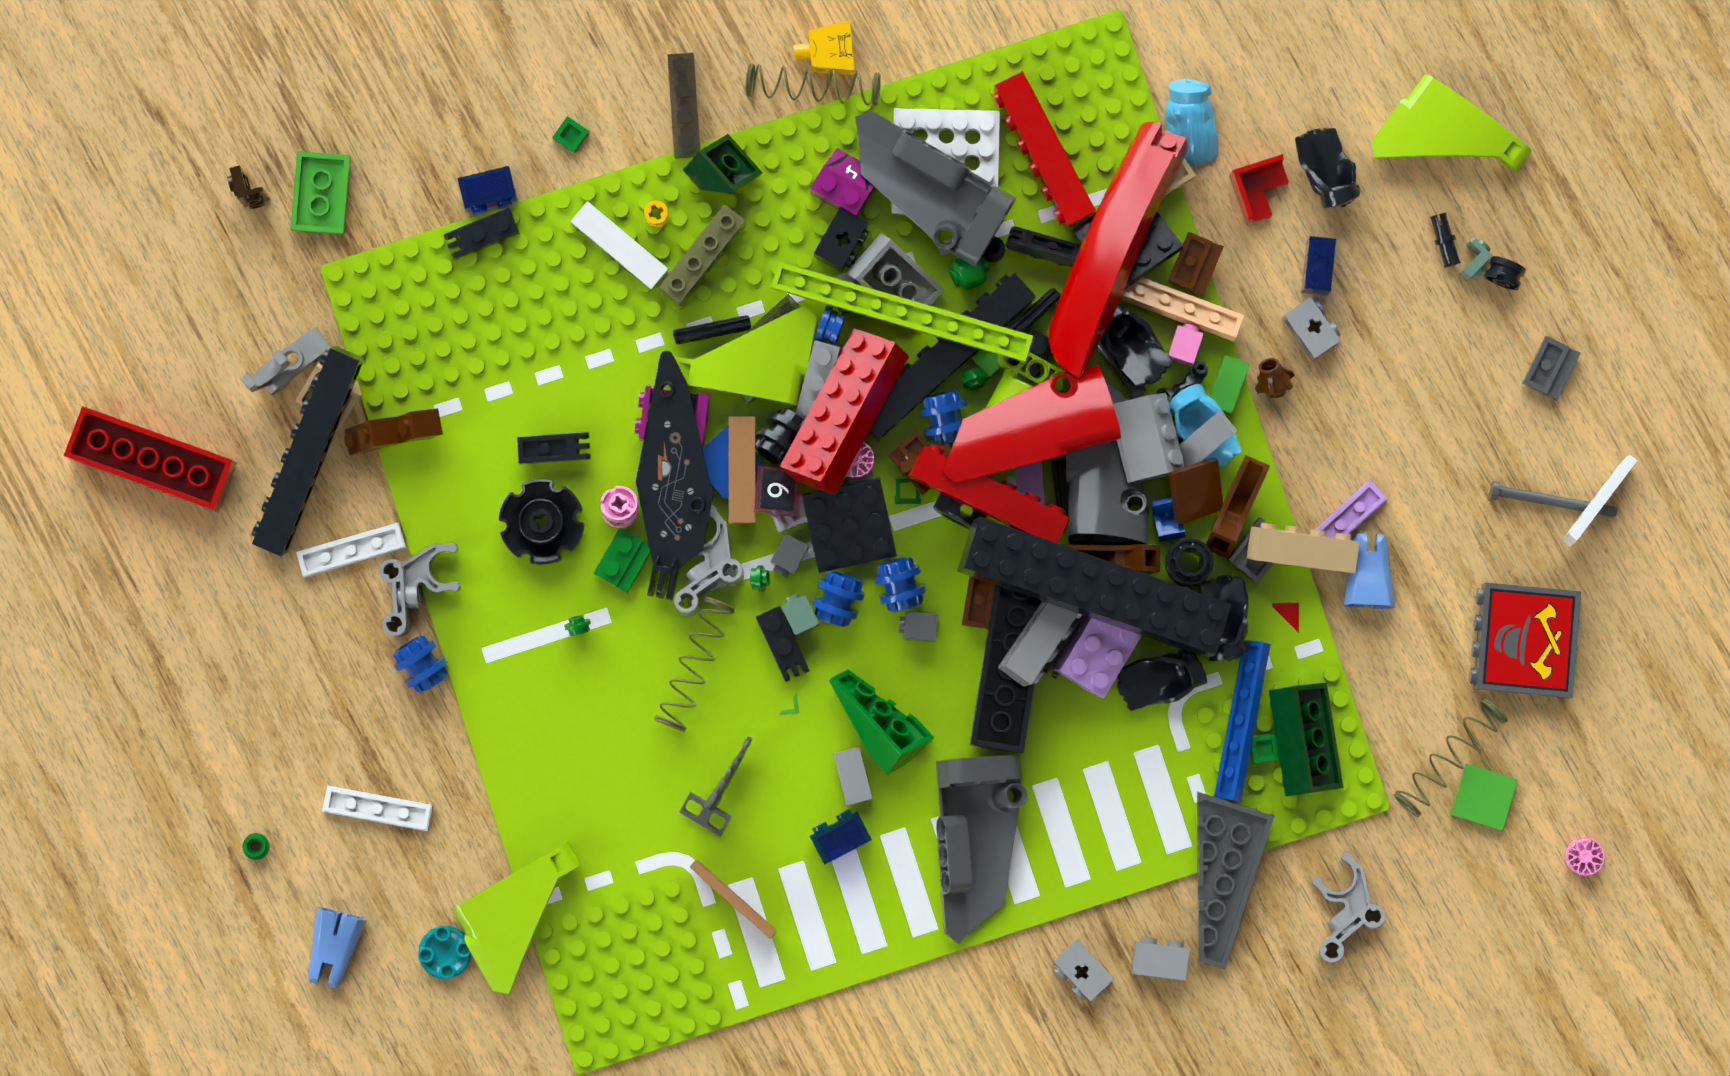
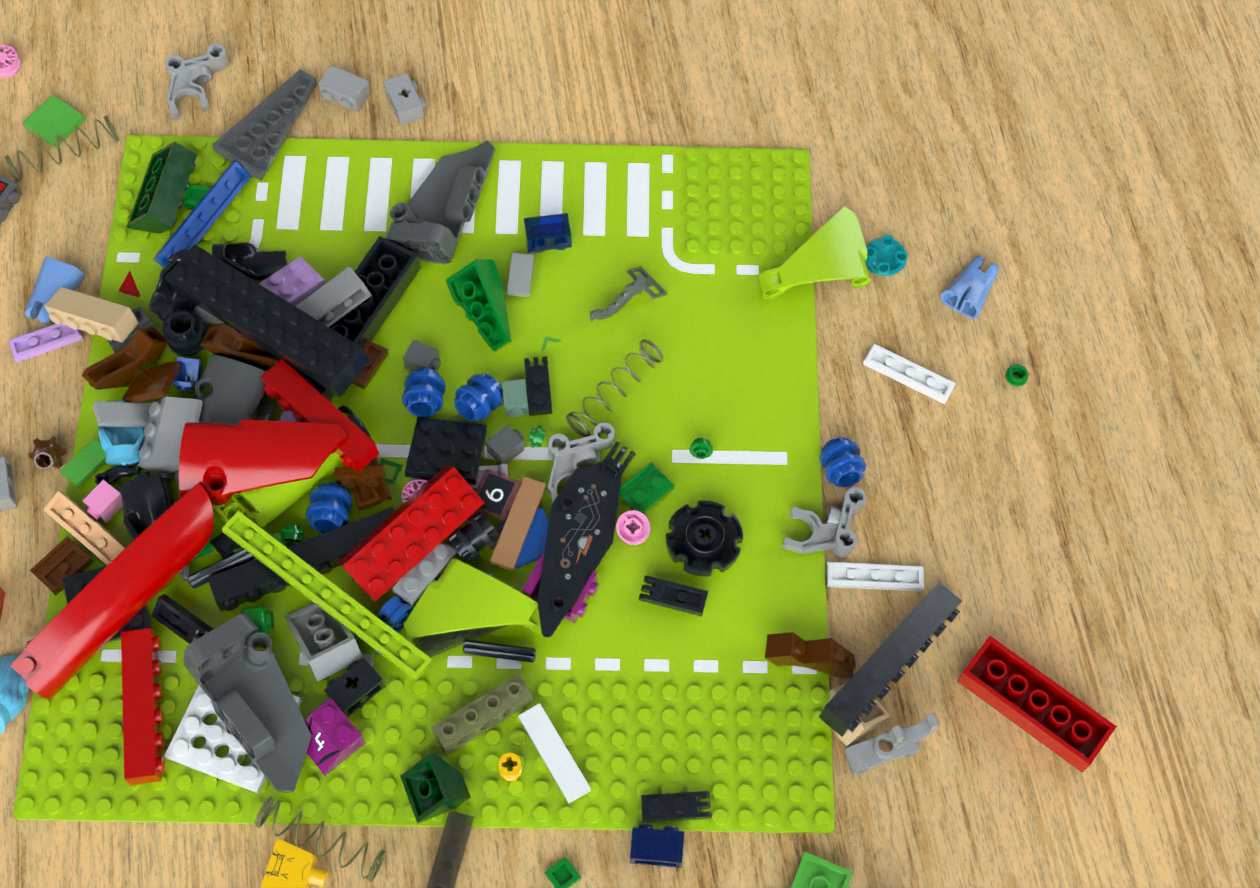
camera: 160 degrees left, 20 degrees down
(733, 898) = (647, 218): medium nougat tile -> none

